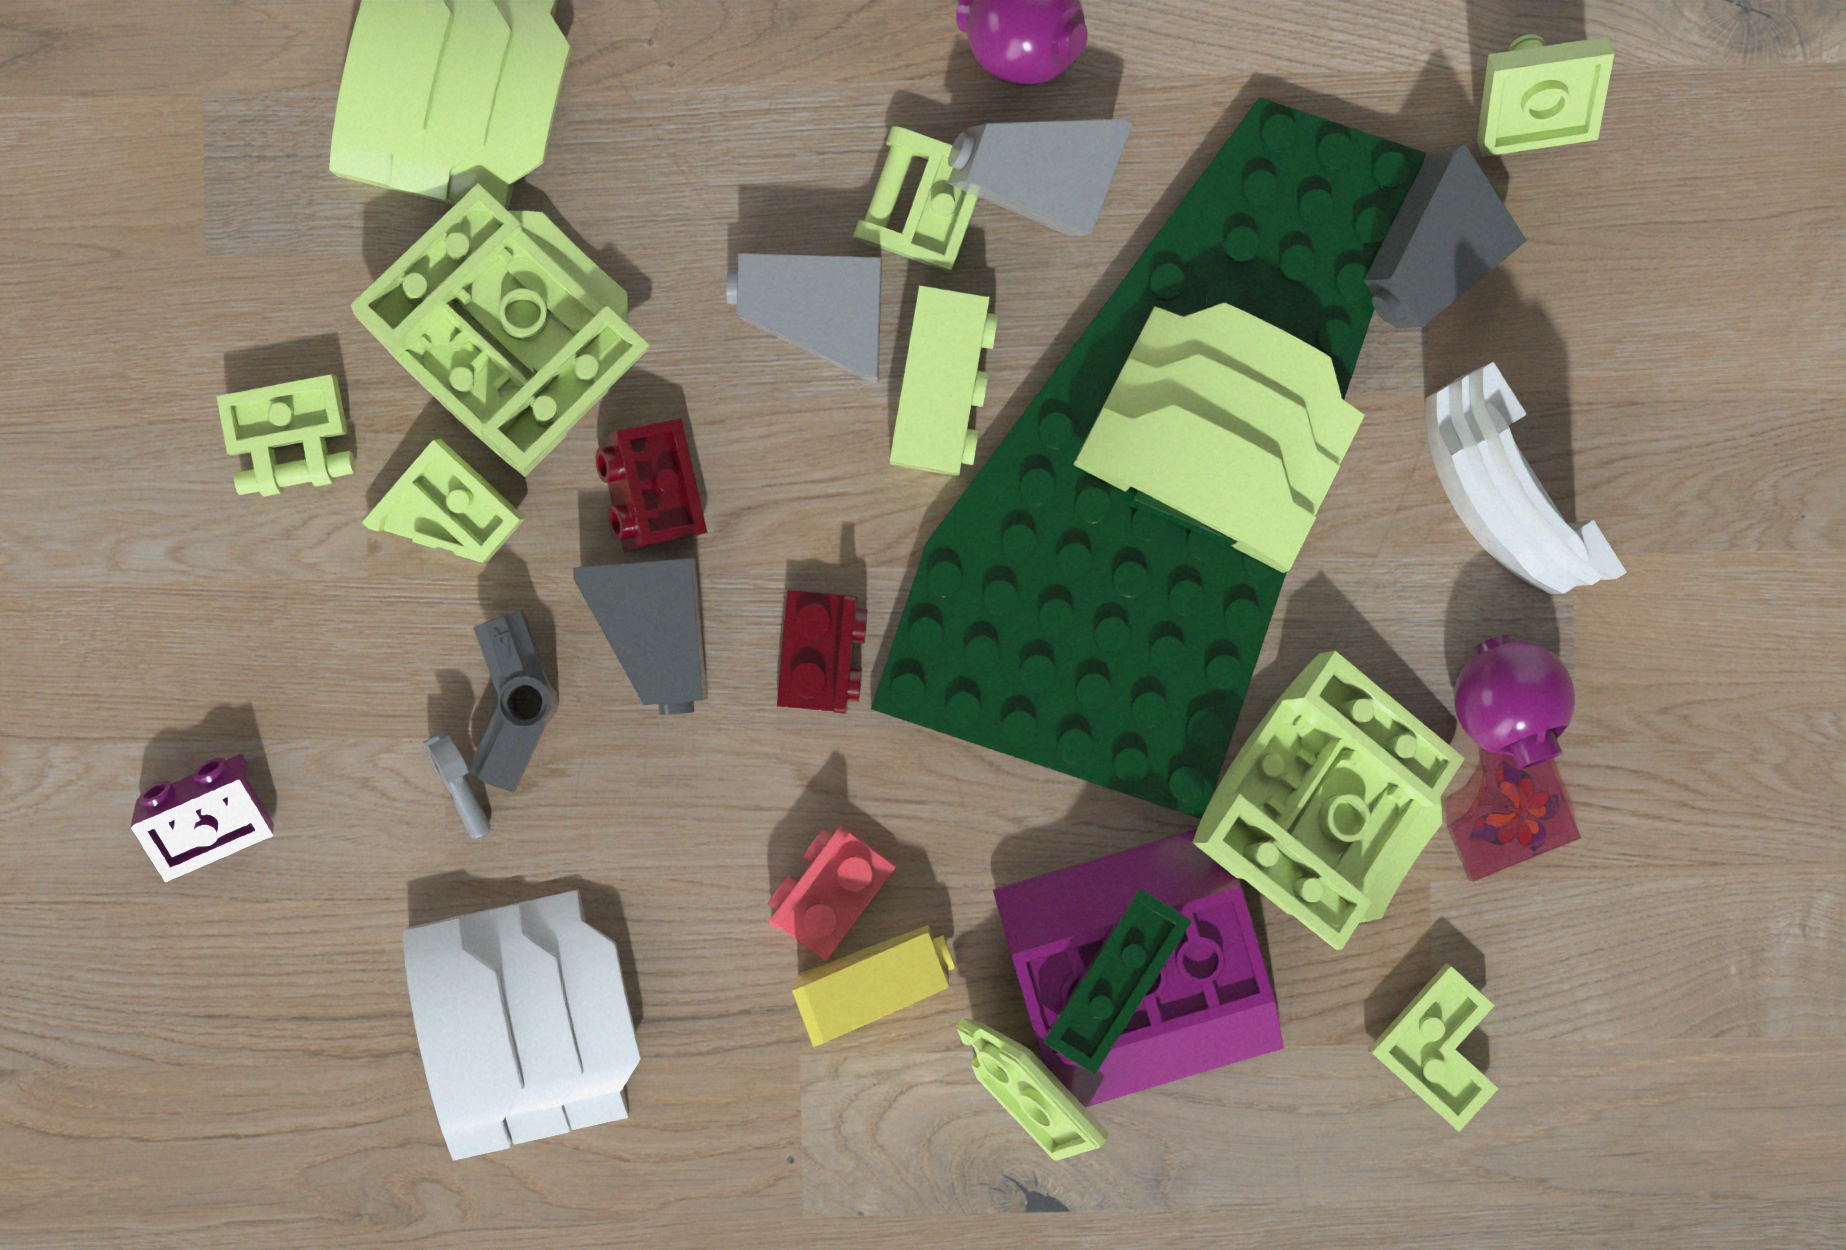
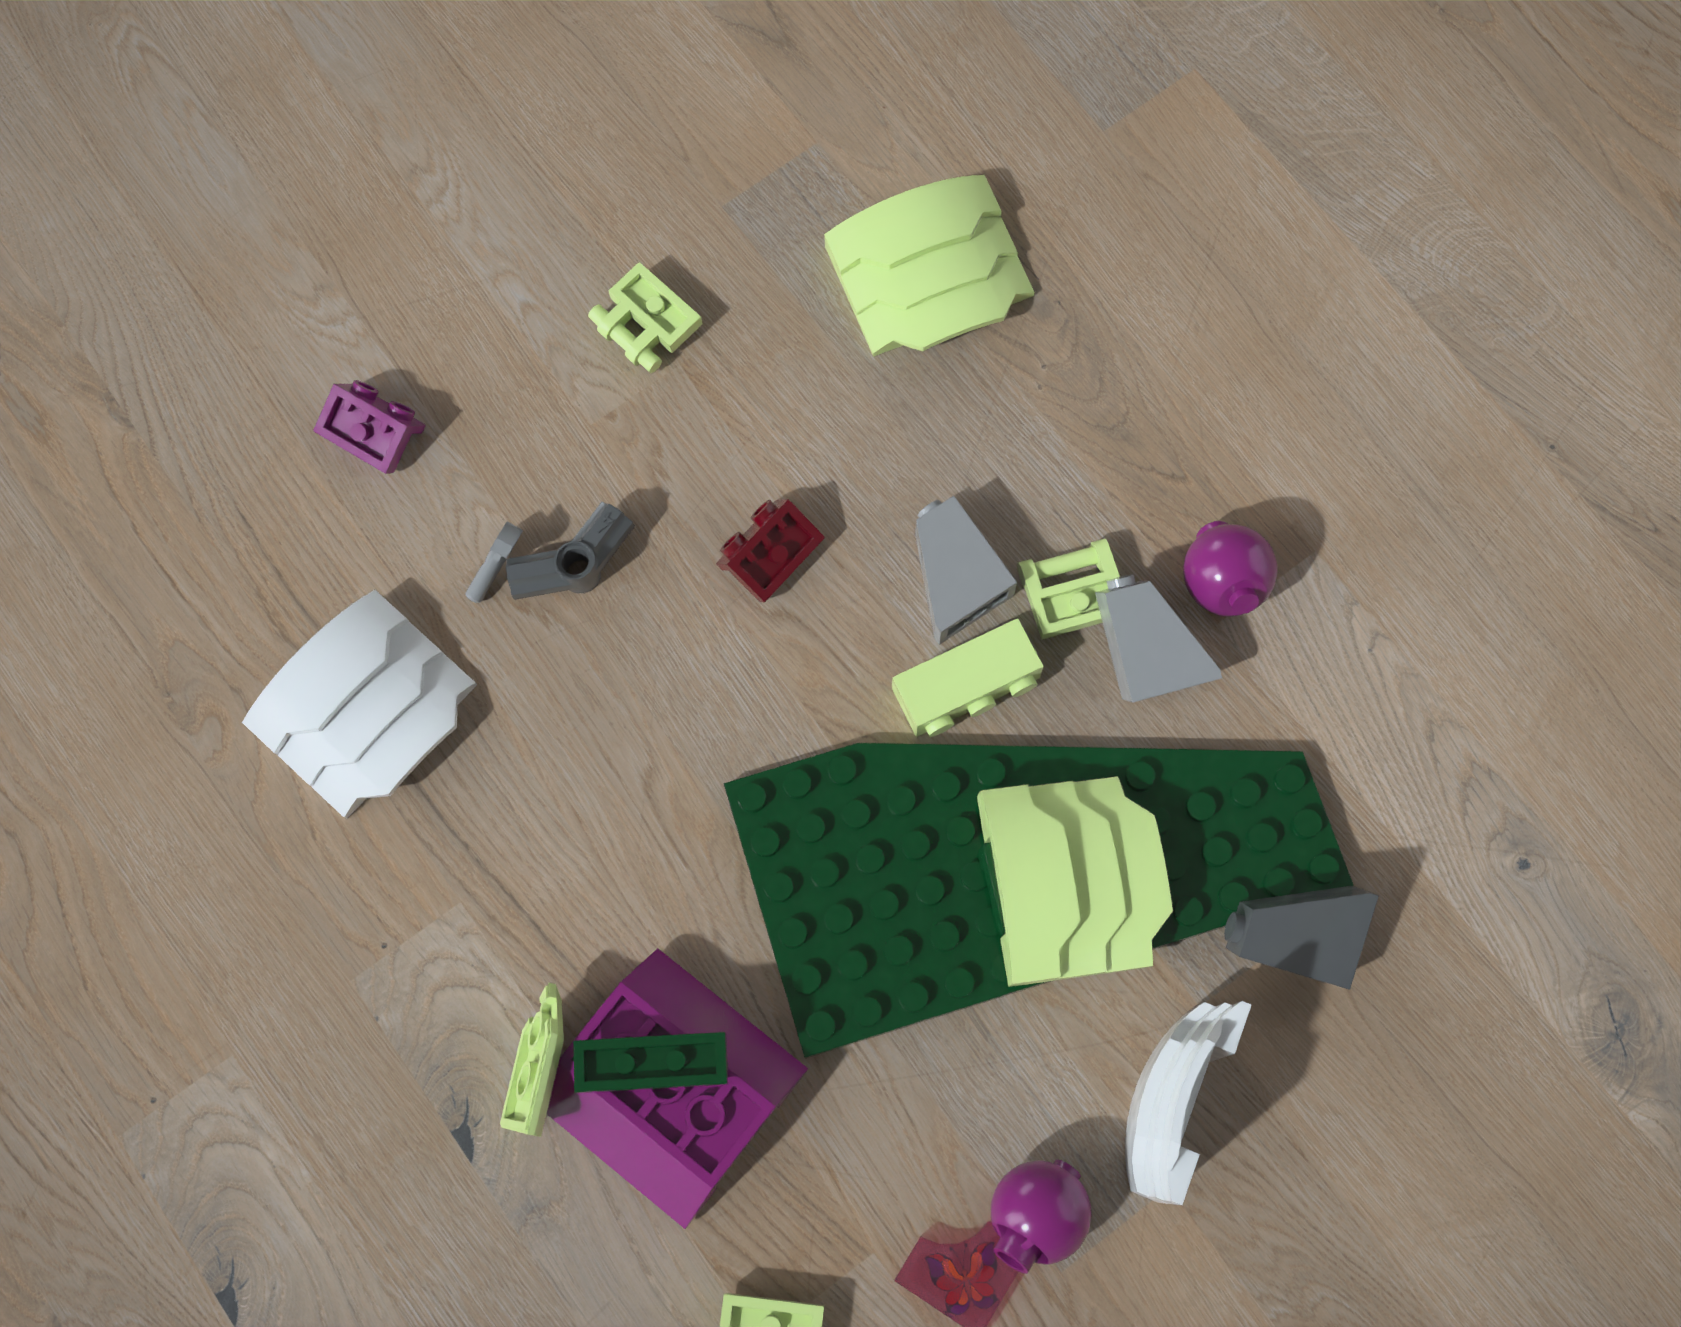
camera: 55 degrees right, 15 degrees down
(446, 507) = (667, 437): yellowish green wing -> none
(504, 325) = (805, 392): yellowish green slope -> none
(652, 626) = (680, 610): dark grey slope -> none
(819, 651) = (739, 726): dark red bracket -> none
(831, 891) = (584, 840): coral bracket -> none
(871, 983) = (538, 907): light yellow slope -> none
(1330, 799) = (878, 1135): yellowish green slope -> none
(1544, 94) = (1451, 931): yellowish green tile -> none

